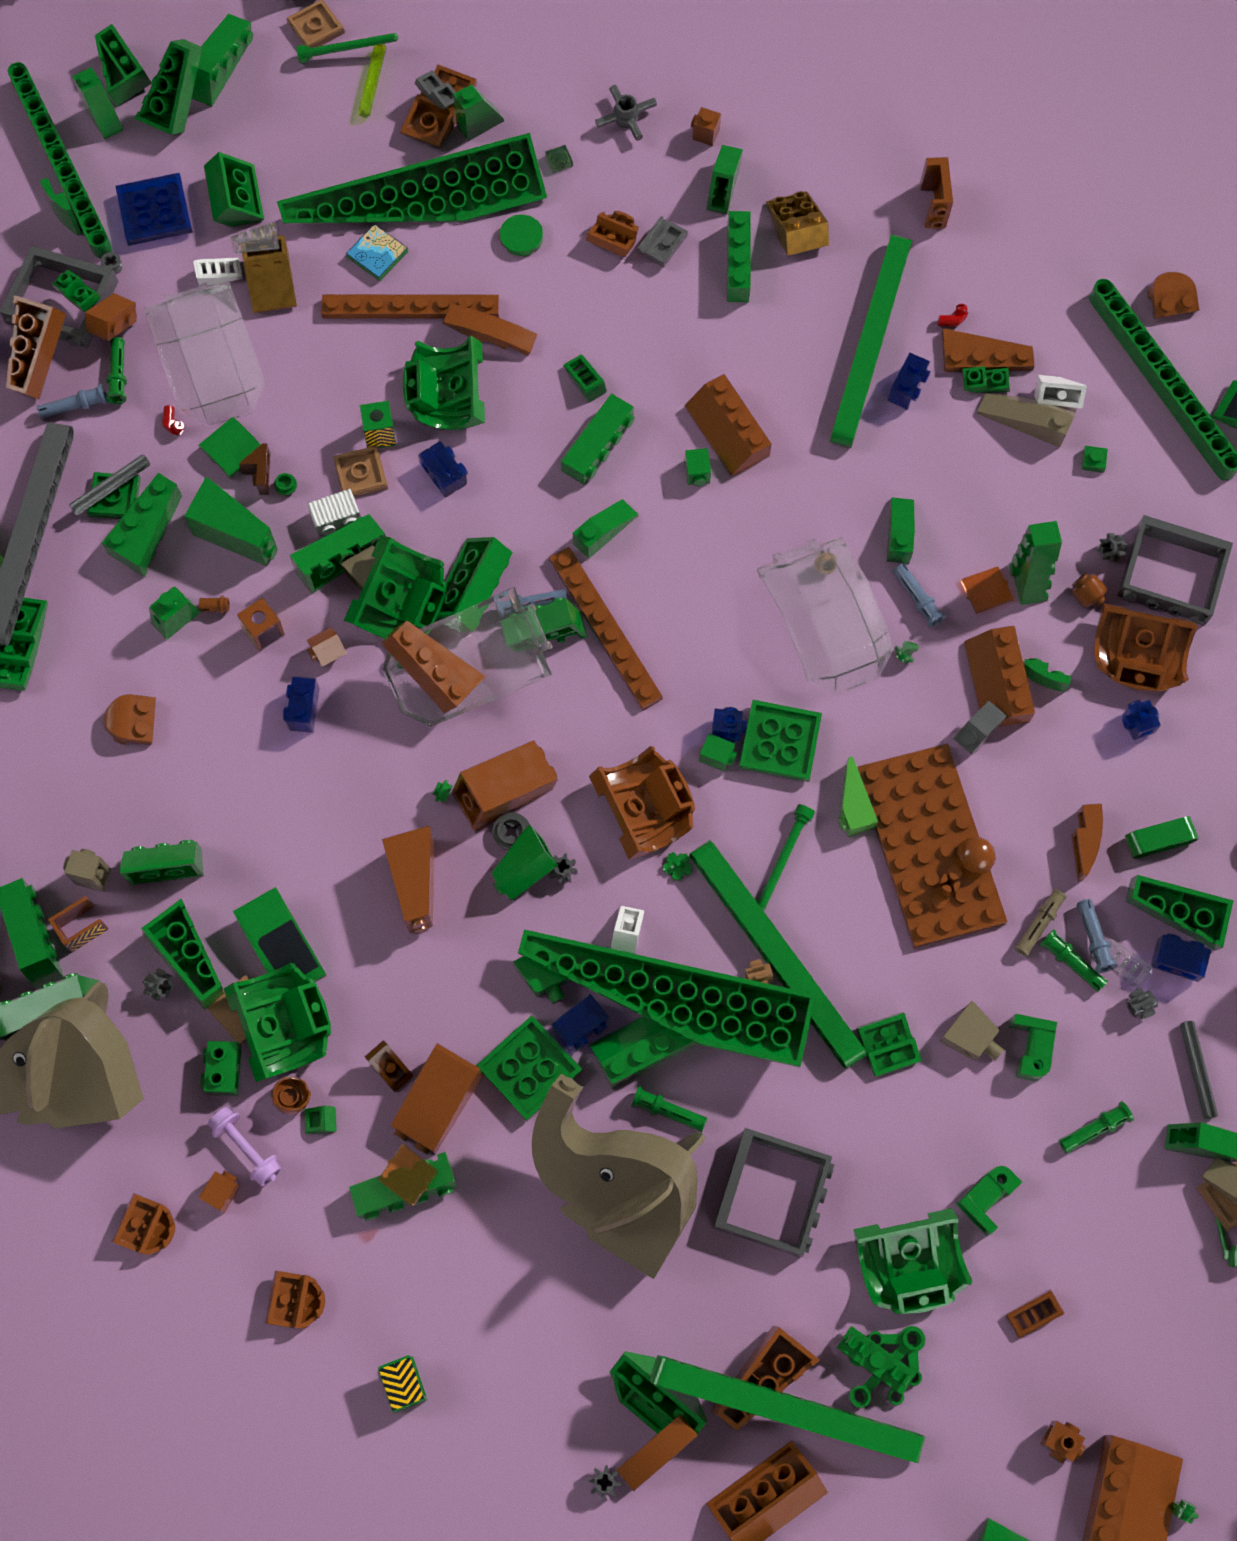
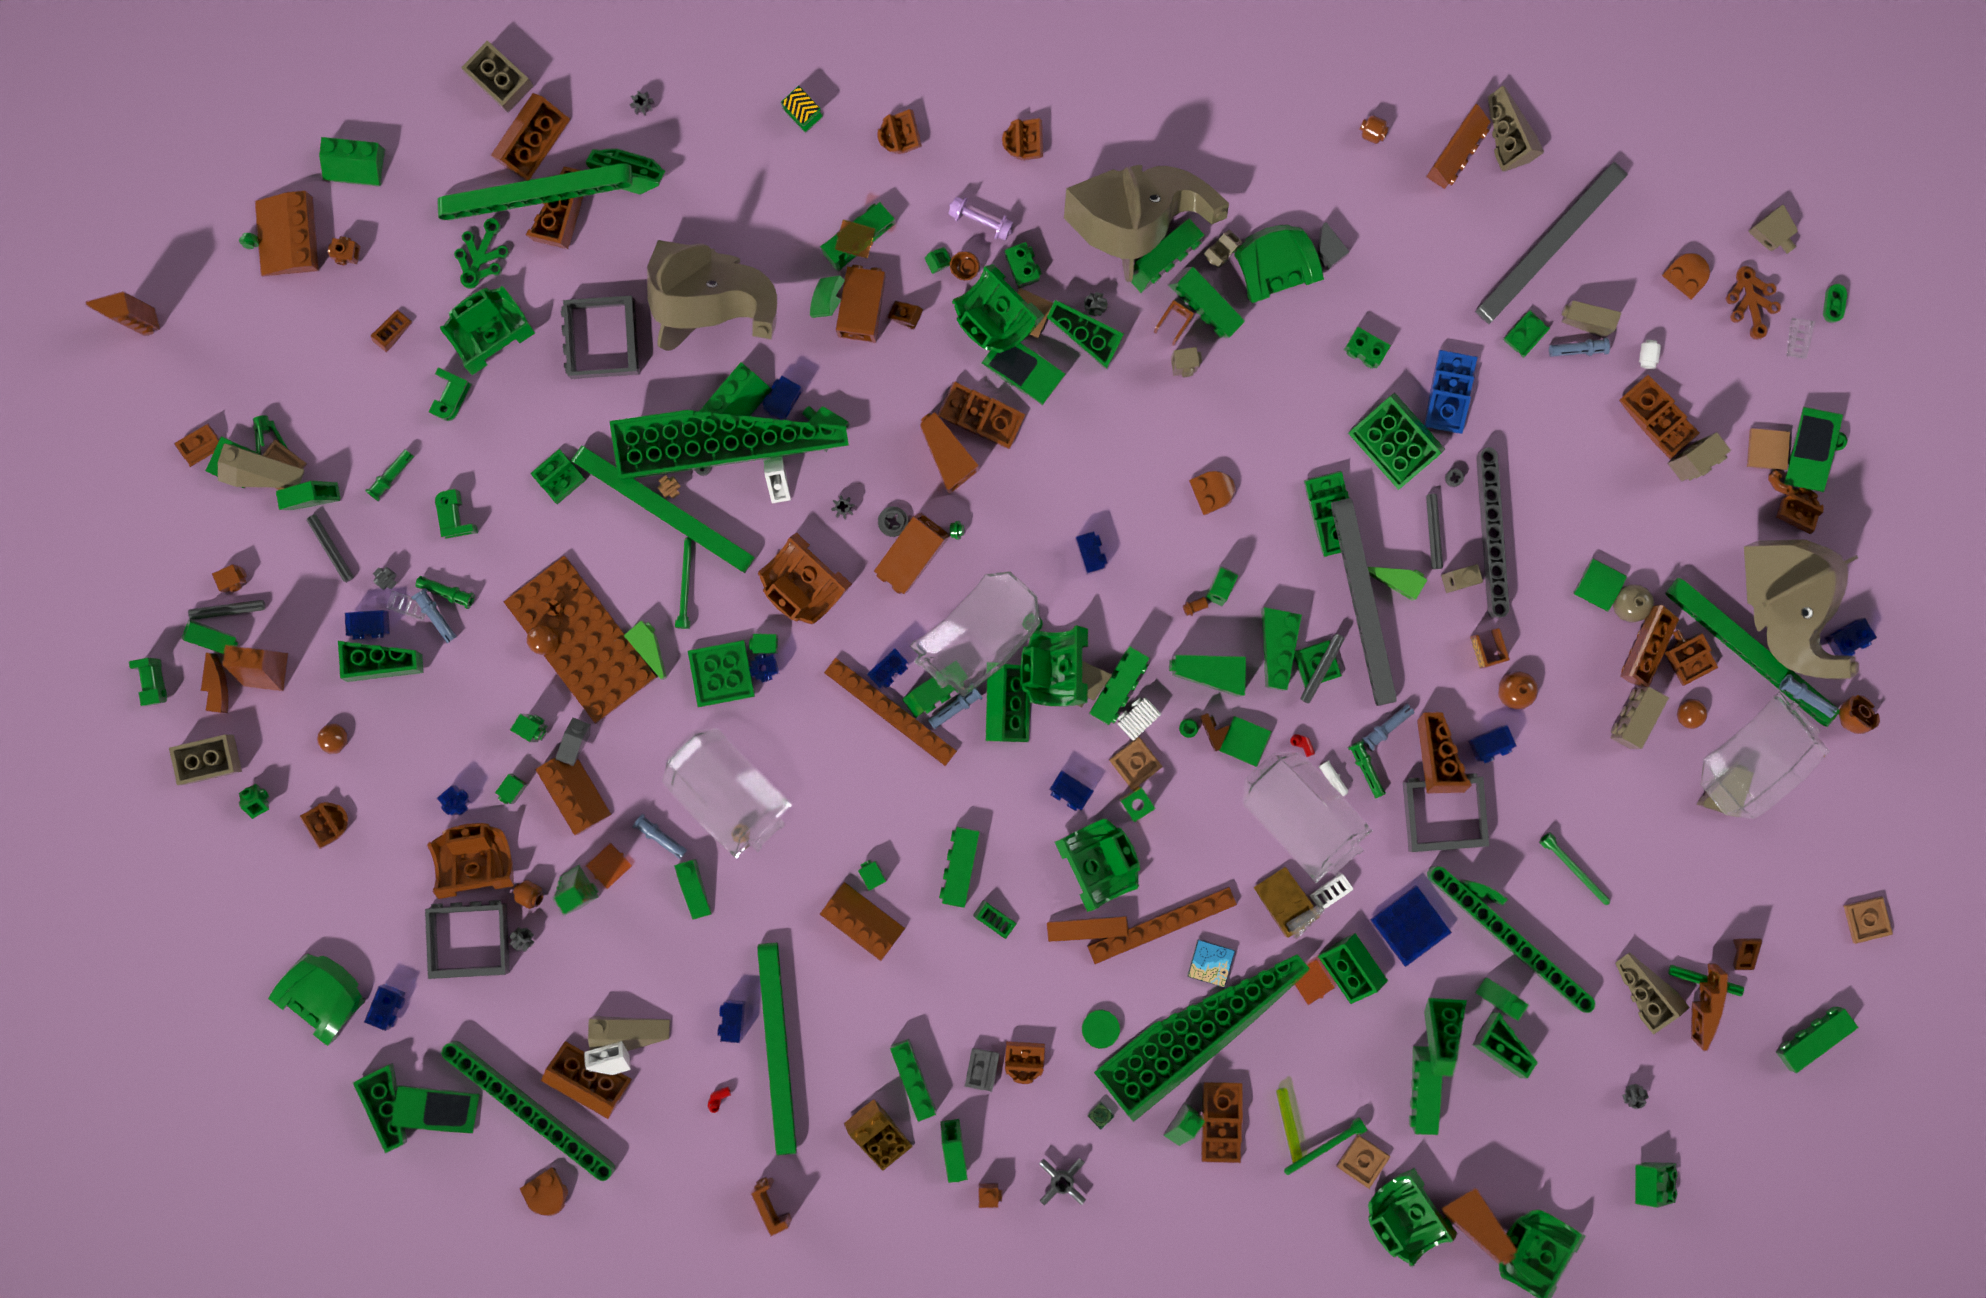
camera: 160 degrees right, 15 degrees up
(75, 290) = (1431, 819): green slope -> none
(111, 316) = (1392, 809): dark orange brick -> none
(112, 257) = (1423, 868): dark grey bush -> none
(157, 376) = (1333, 777): none -> white axle
(162, 863) = (1135, 391): green slope -> none
(220, 1190) = (984, 182): dark orange brick -> none
(254, 630) = (1141, 605): dark orange piece -> none
(278, 191) = (1314, 983): none -> clear orange piece
(325, 647) = (1093, 604): brick -> none
(354, 911) = (981, 415): none -> dark orange slope
(432, 666) = (1000, 614): dark orange wedge -> none
(435, 90) = (1226, 1130): dark grey slope -> none
(475, 1124) = (824, 297): none -> green slope
(523, 864) = (871, 498): green slope -> none
(527, 1066) = (806, 354): green plate -> none
(587, 668) = (888, 668): none -> clear blue brick
(603, 527) = (924, 794): green slope -> none
(657, 1105) = (706, 365): green pin -> none
(657, 1452) = (613, 133): dark orange slope -> none
(677, 865) = (761, 547): green plant -> none
(876, 1360) = (489, 253): green plate -> none
(904, 653) = (652, 782): green plate -> none
(970, 350) = (685, 1074): dark orange wing -> none
(973, 1034) = (500, 506): dark tan torso -> none
(986, 381) = (672, 1051): green slope -> none
(1025, 761) = (530, 727): none -> green brick
(1038, 672) = (546, 810): green slope -> none
(1054, 900) = (484, 590): dark tan pin -> none
(1070, 708) = (511, 789): none -> green brick
(1087, 838) = (464, 688): dark orange slope -> none
(1094, 459) = (562, 1015): green plate -> none
(1106, 394) = (590, 1088): none -> dark orange slope
(1161, 837) = (410, 713): green beam -> none

